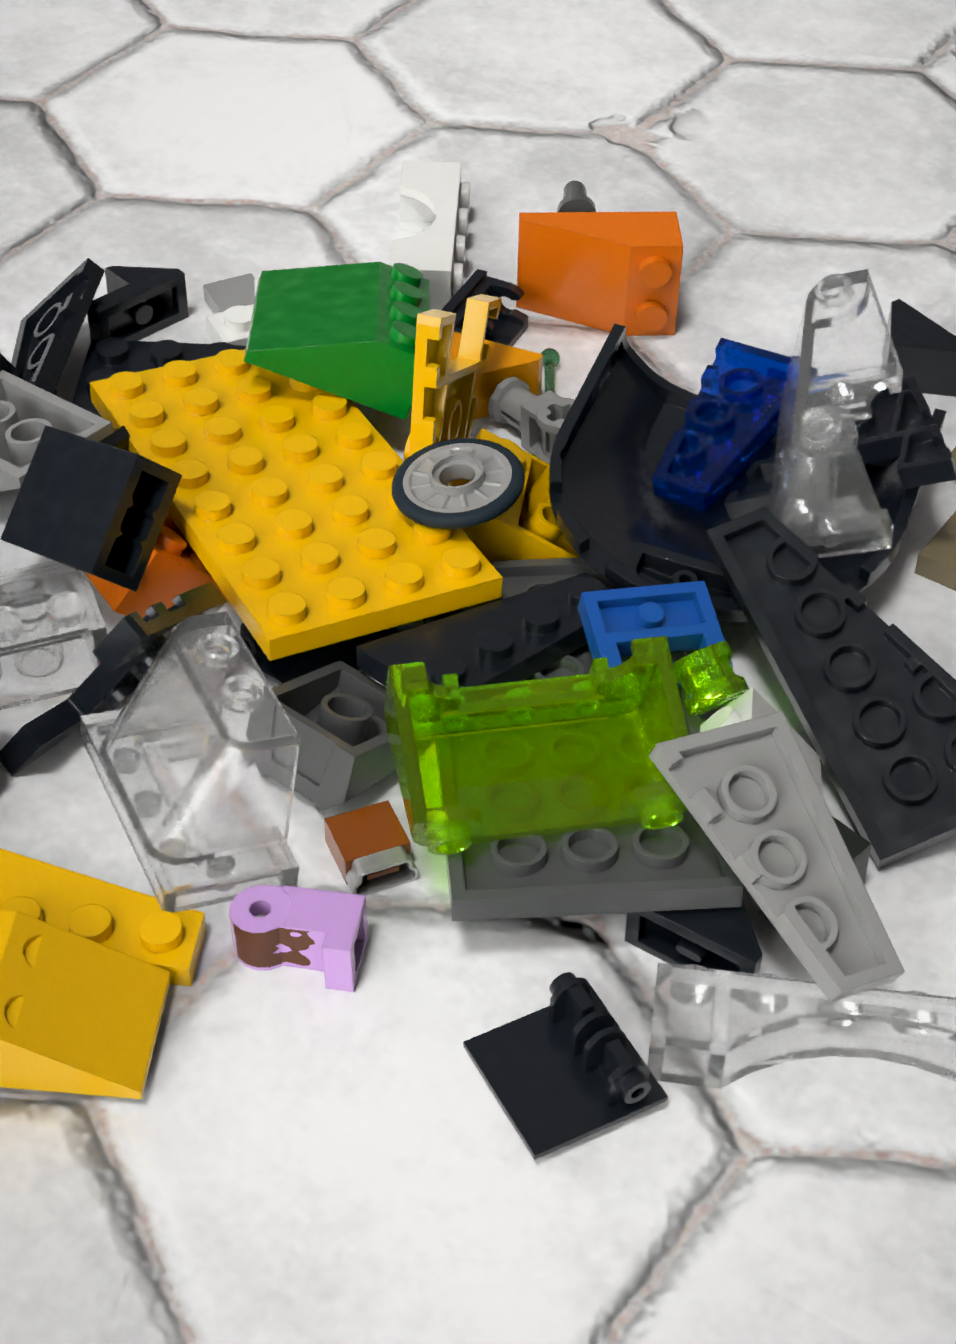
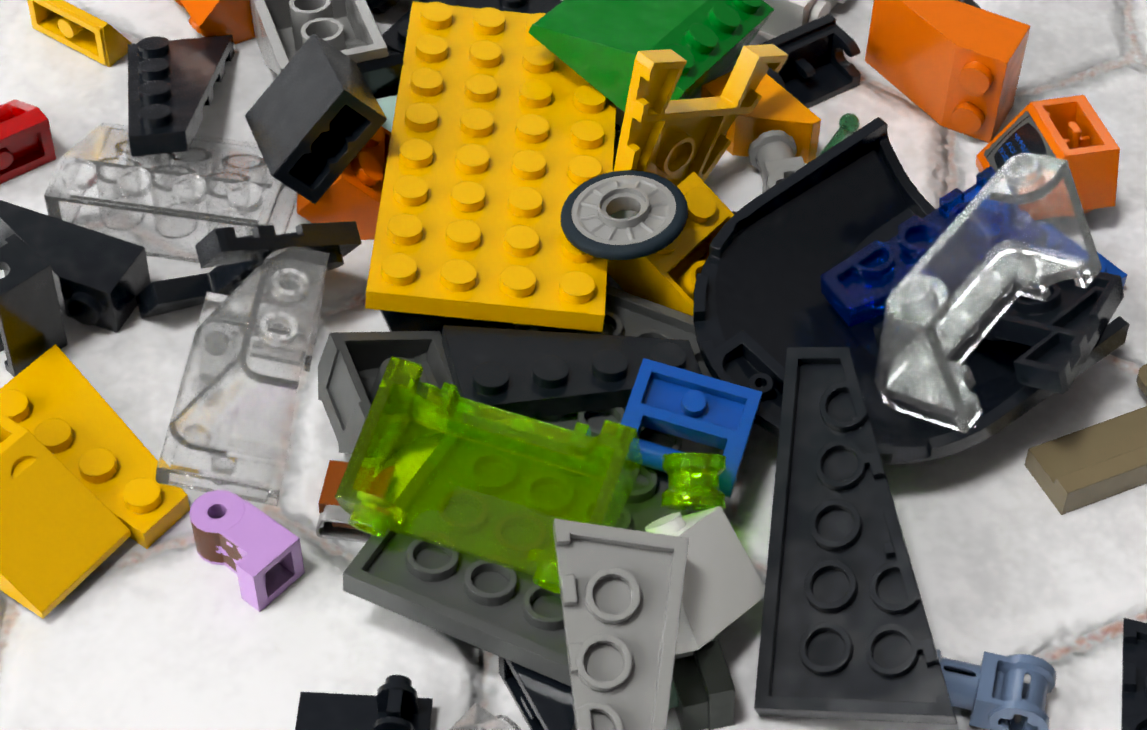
camera: 30 degrees right, 5 degrees up
(749, 306) = (1063, 130): none -> orange slope

